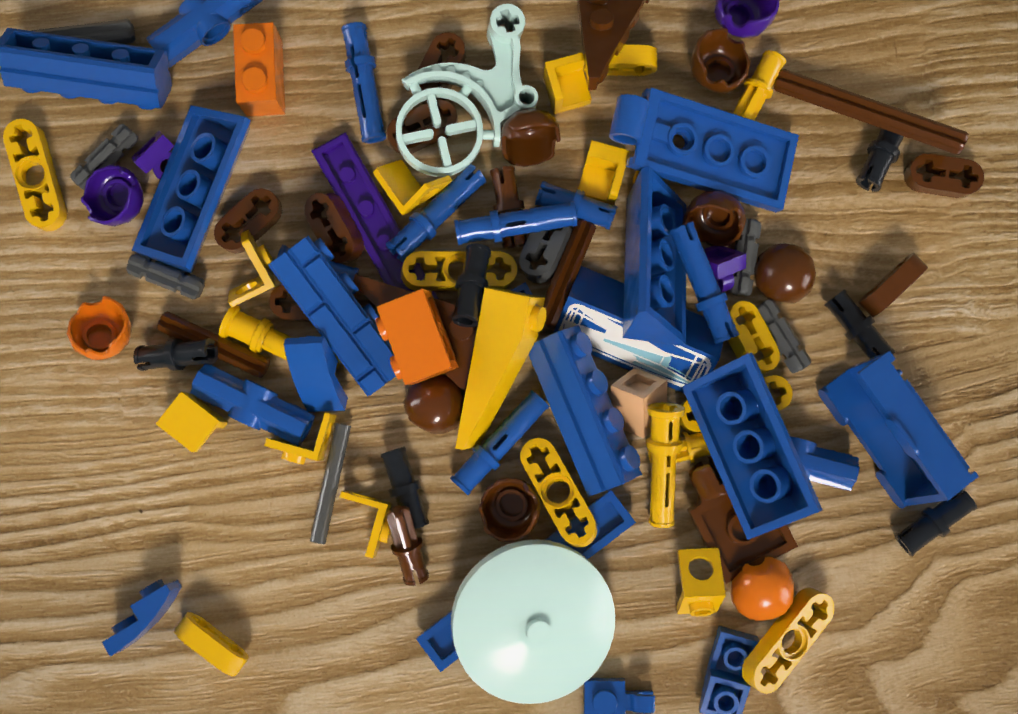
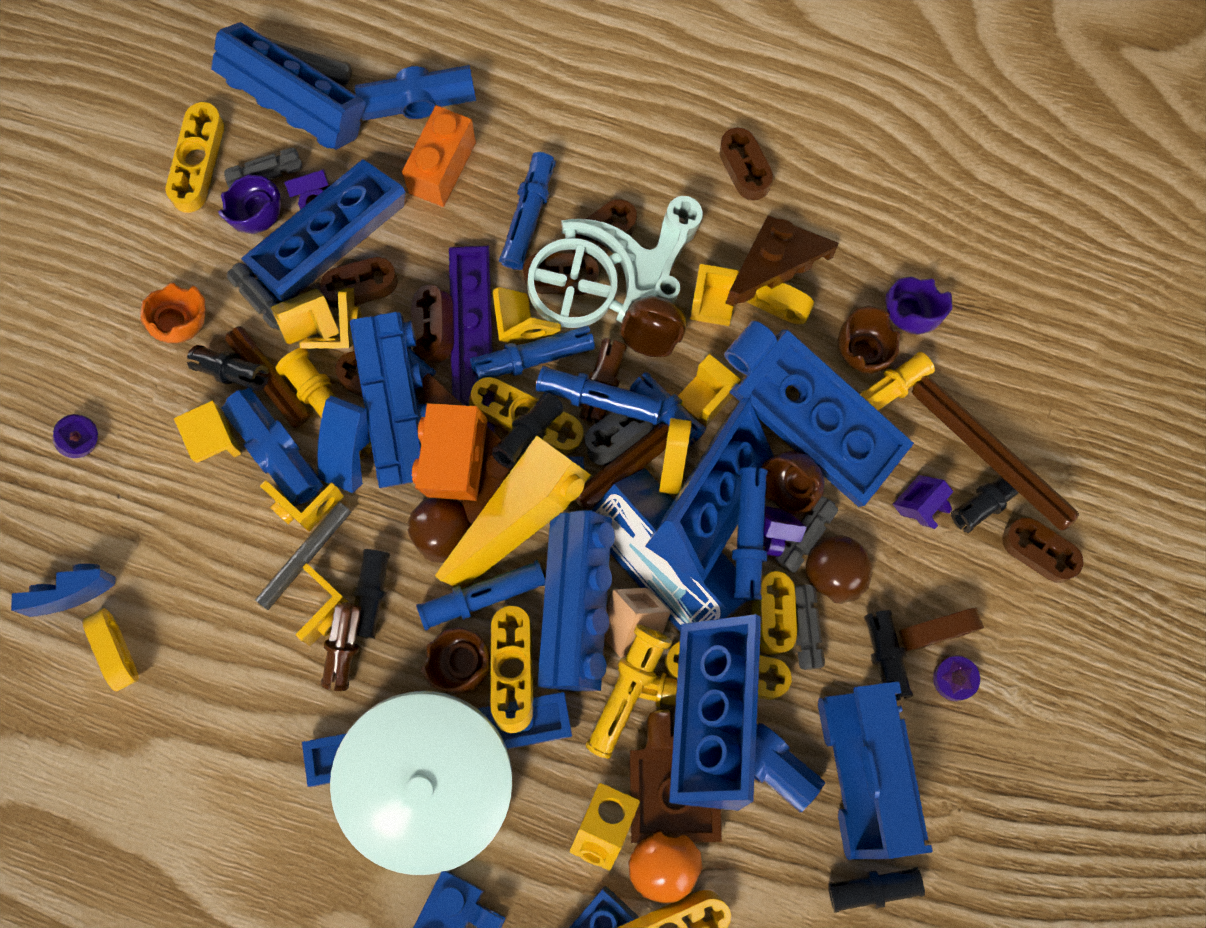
camera: 30 degrees right, 10 degrees down
(74, 479) = (75, 436): none -> dark purple tile
(218, 276) = (305, 317): none -> yellow panel
(605, 245) = (675, 456): none -> yellow beam
(829, 180) = (923, 499): none -> dark purple tile
(921, 318) = (956, 678): none -> dark purple tile

